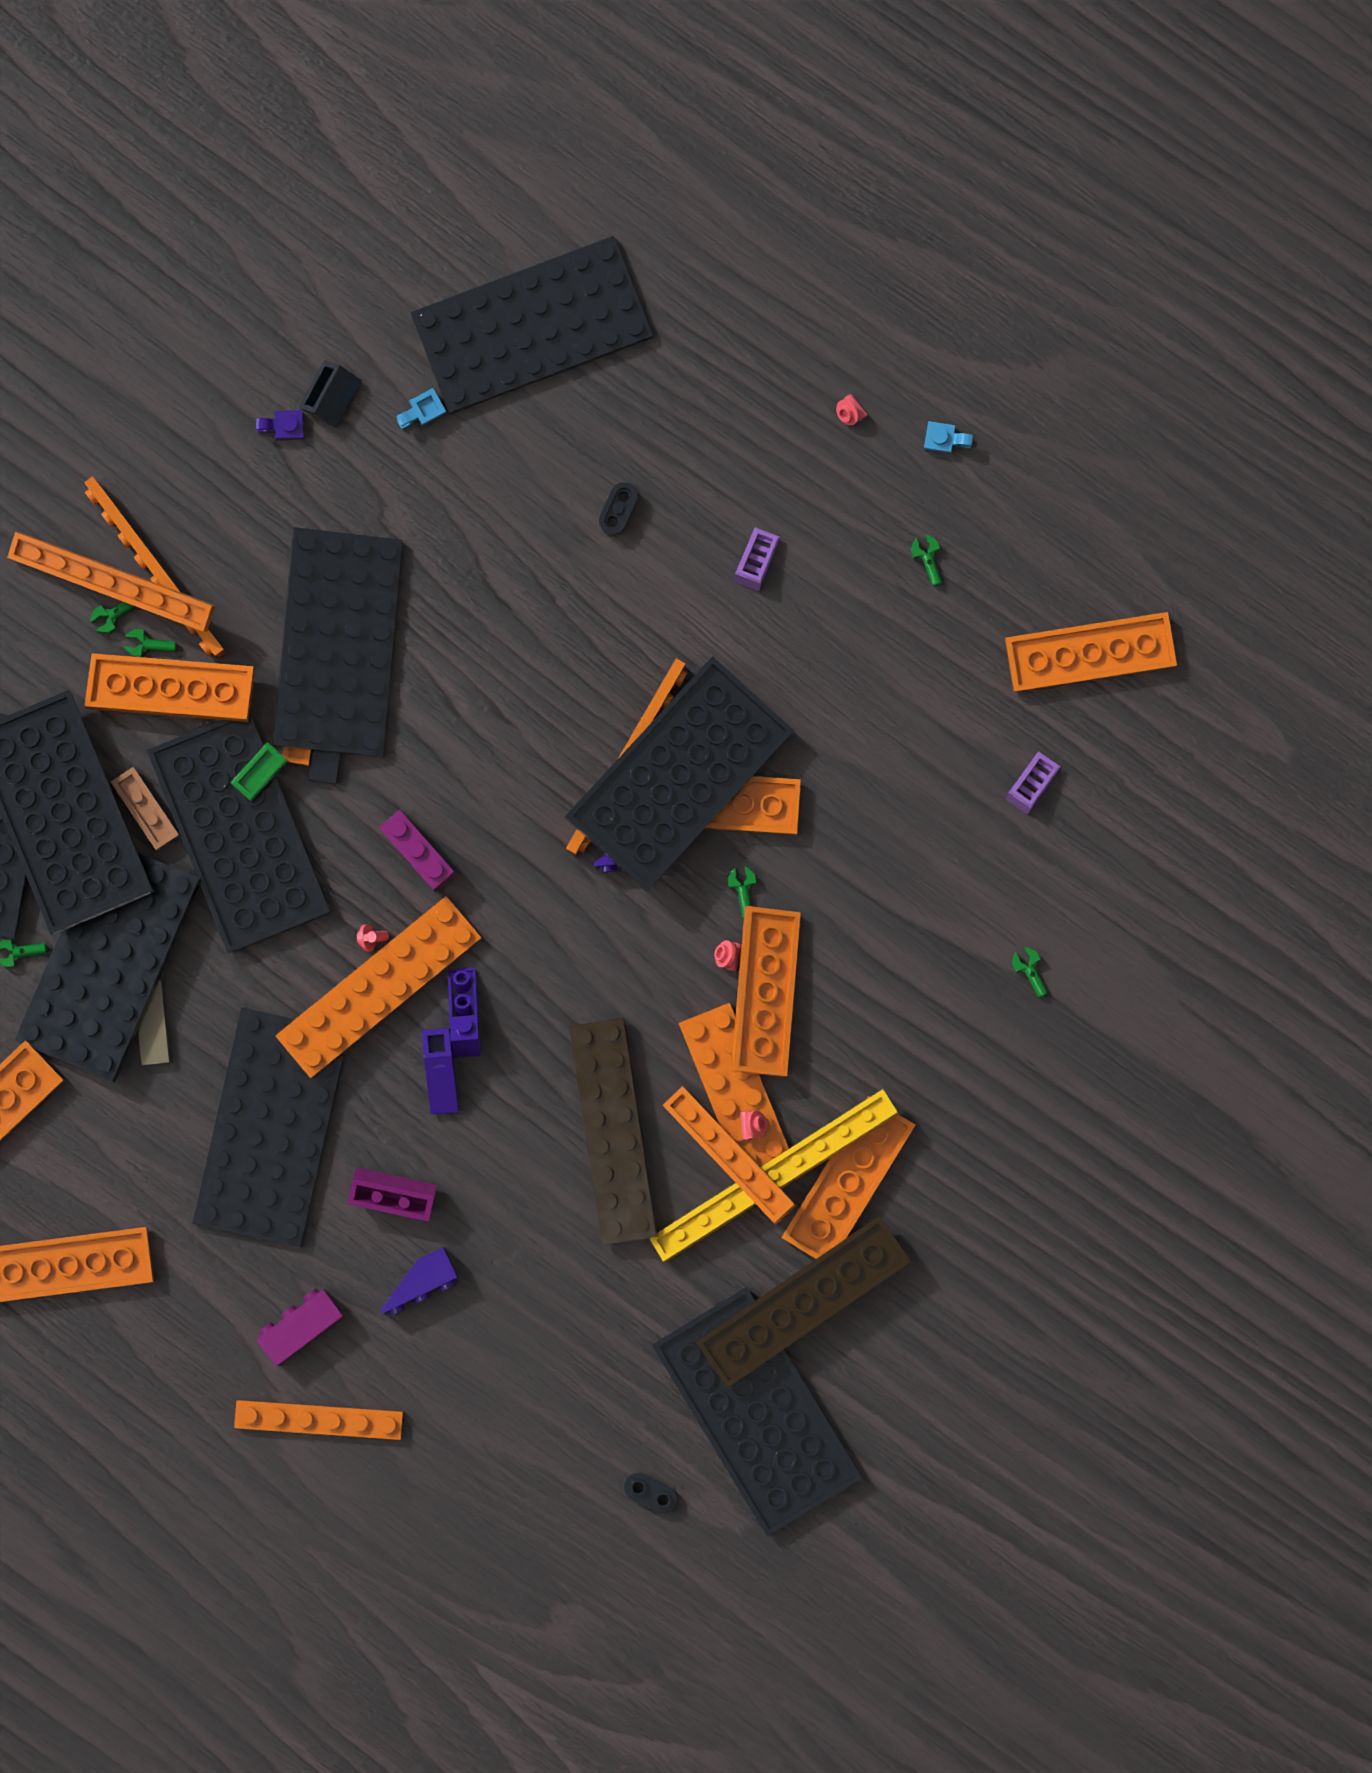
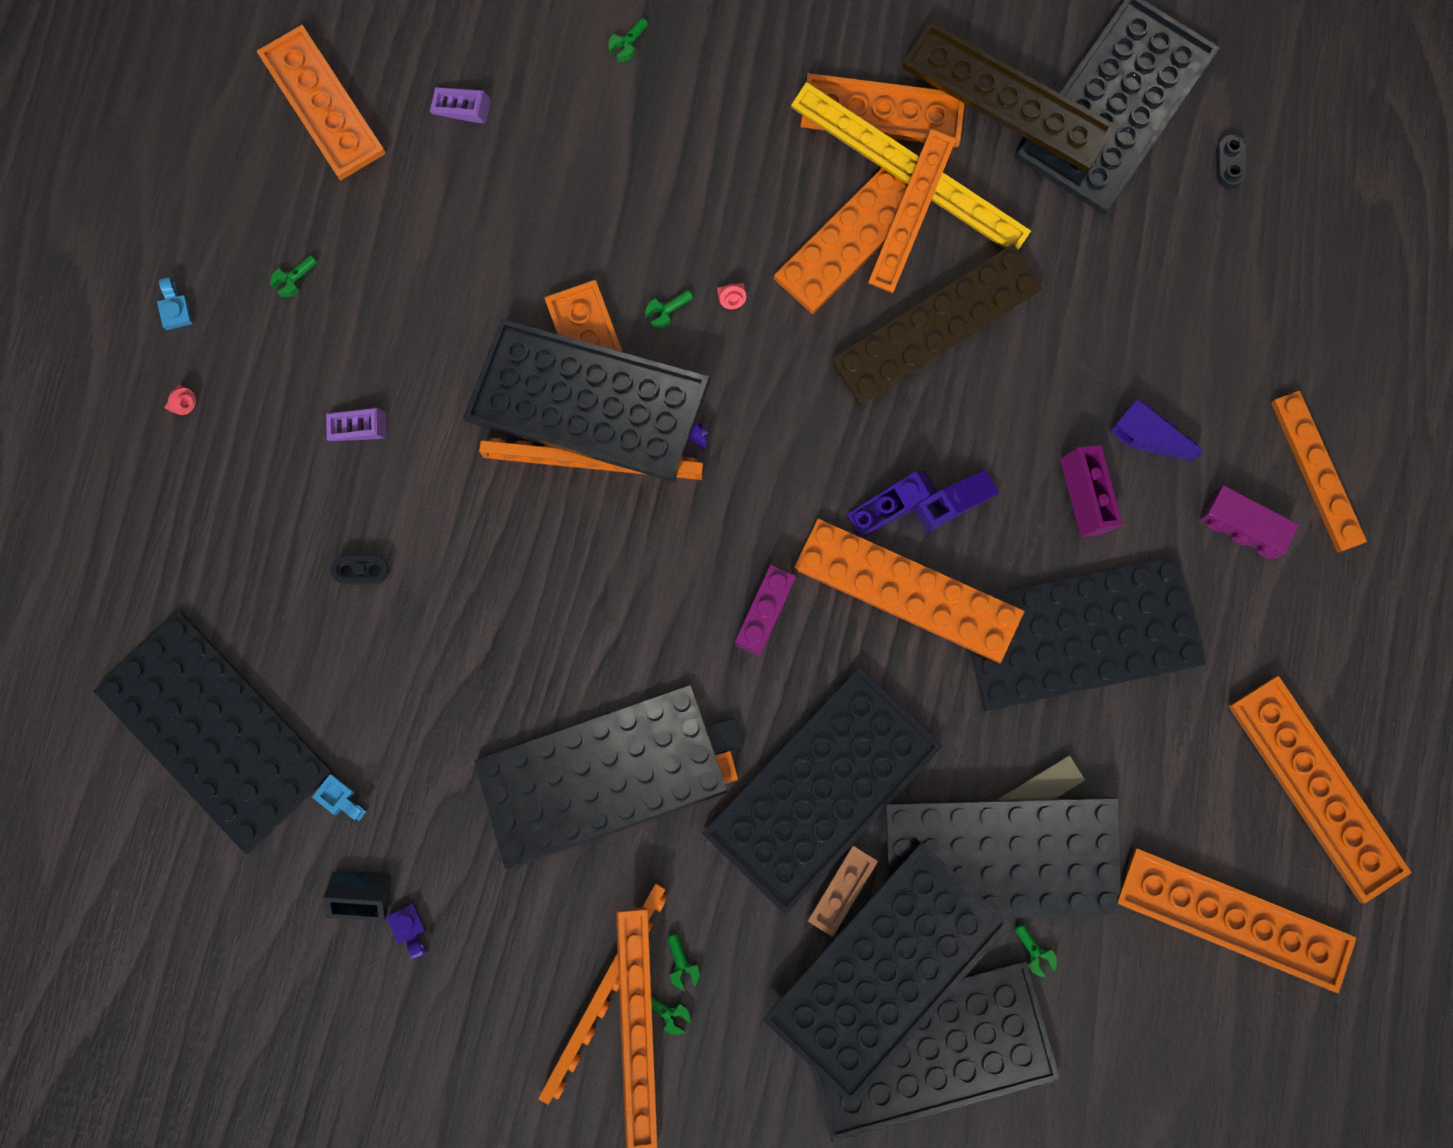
camera: 120 degrees left, 5 degrees down
(170, 687) = (715, 921): orange plate -> none
(259, 771) = (758, 793): green tile -> none
(367, 937) = (866, 620): coral plate -> none
(753, 1124) = (874, 204): coral plate -> none
(765, 991) = (750, 244): orange plate -> none

